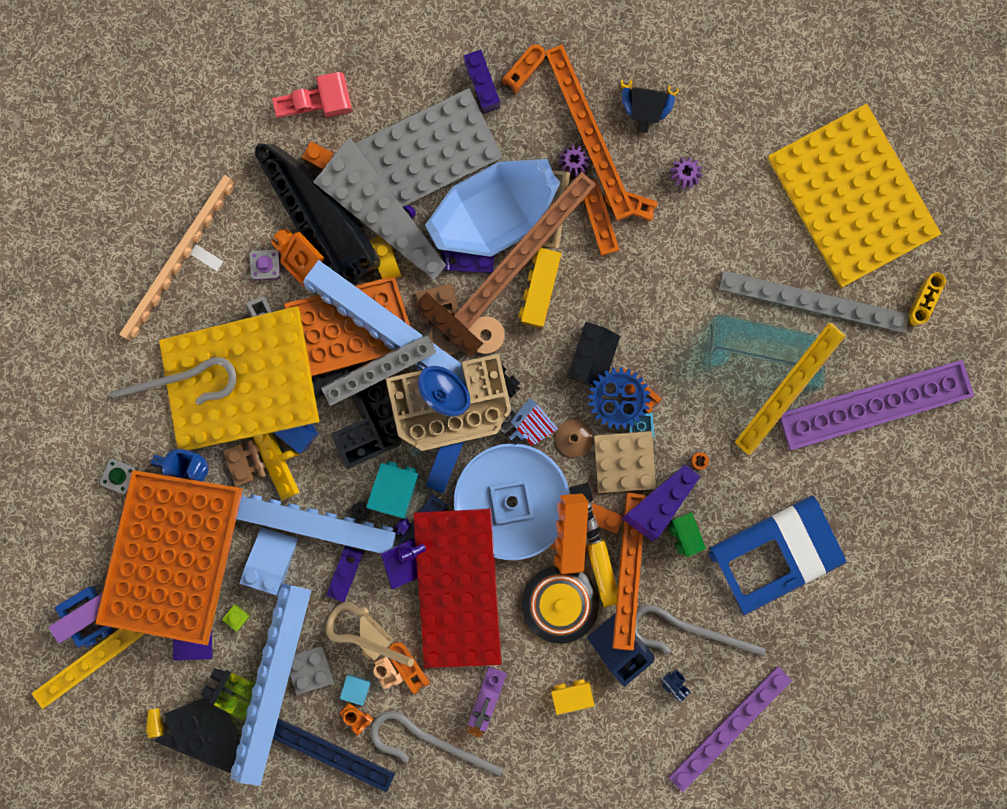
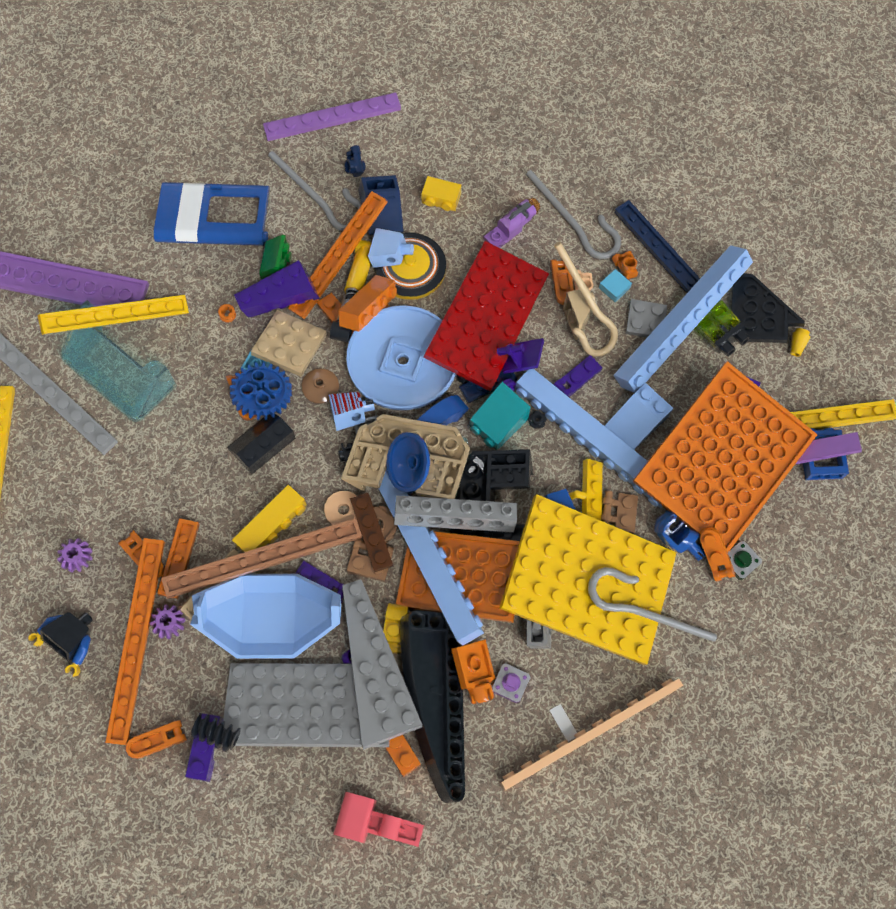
camera: 155 degrees left, 15 degrees down
(140, 465) = (716, 553): none -> orange plate
(236, 617) = (689, 390): lime plate -> none
(473, 88) = (215, 733): none -> black piece
(586, 604) = (388, 248): none -> light blue torso

